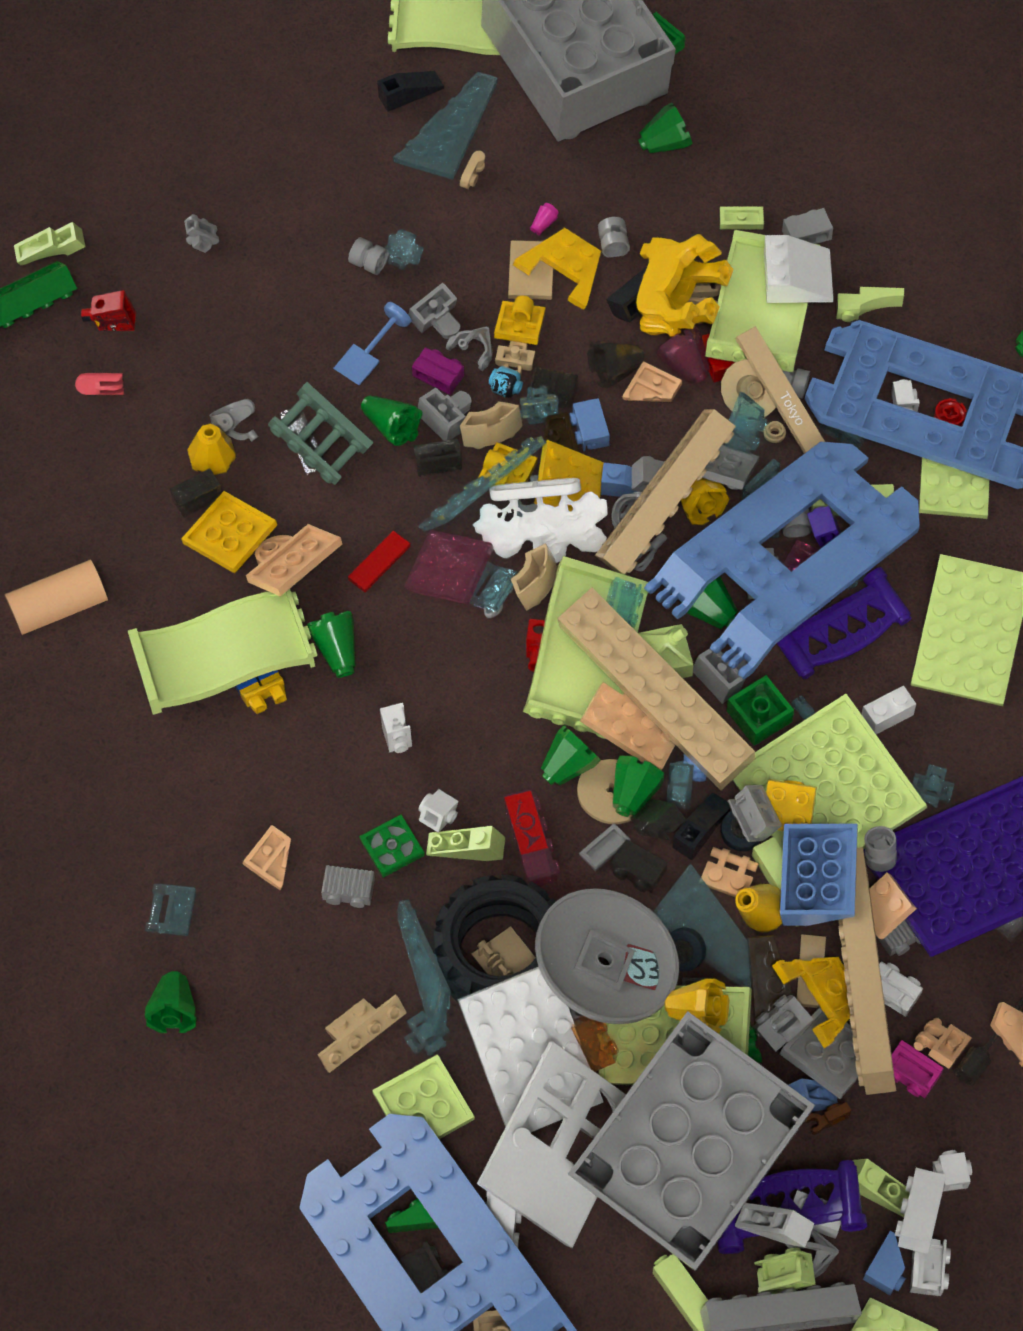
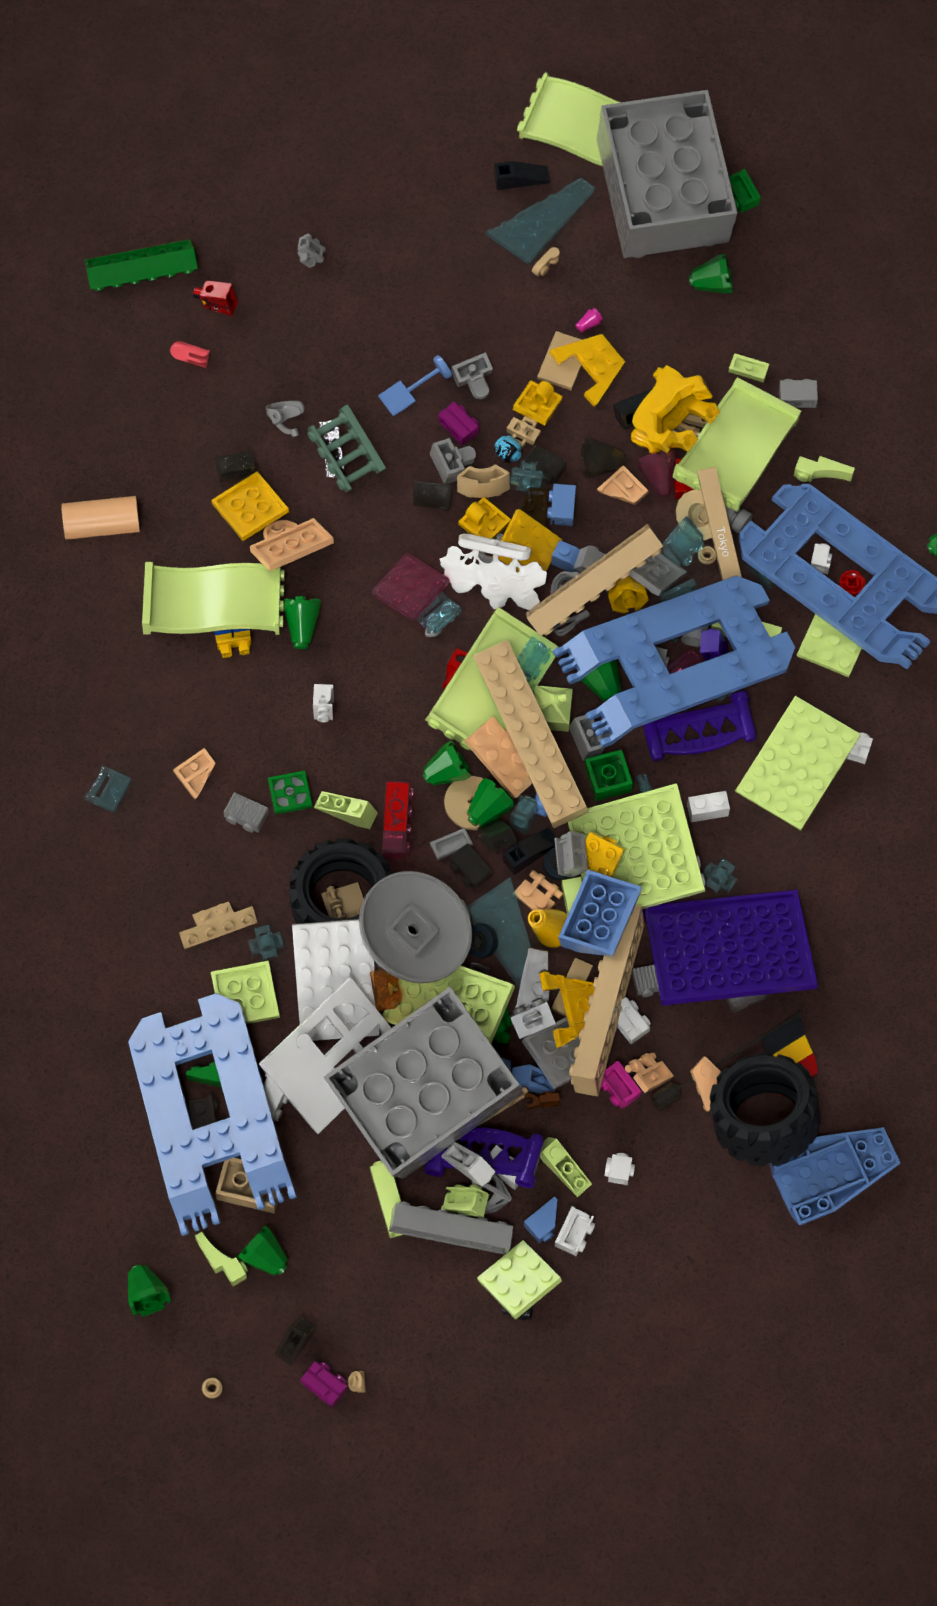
camera: 15 degrees right, 5 degrees up
(50, 243) = (188, 223): yellowish green slope -> none
(169, 1002) = (83, 858): green cone -> none
(211, 450) = (258, 436): yellow cone -> none
(366, 255) = (435, 309): light grey wheel -> none
(379, 561) = (358, 565): red tile -> none
(393, 418) = (408, 453): green cone -> none
(405, 249) = (467, 315): clear light blue piece -> none
(427, 972) = (280, 891): clear light blue wing -> none
(438, 810) = (333, 776): white brick -> none
(464, 337) = (504, 404): light grey helmet -> none
(478, 487) = (453, 530): clear light blue wing -> none
(536, 576) = (474, 615): tan brick -> none
(613, 237) = (638, 353): light grey wheel -> none
(643, 968) = (441, 945): clear light blue sticker -> none
(702, 1000) = (472, 986): yellow cone -> none
(796, 271) = (771, 428): white slope -> none
(880, 848) = (657, 911): light grey wheel -> none
(889, 905) = (646, 956): light nougat wing -> none
(920, 1210) = (581, 1189): white brick -> none

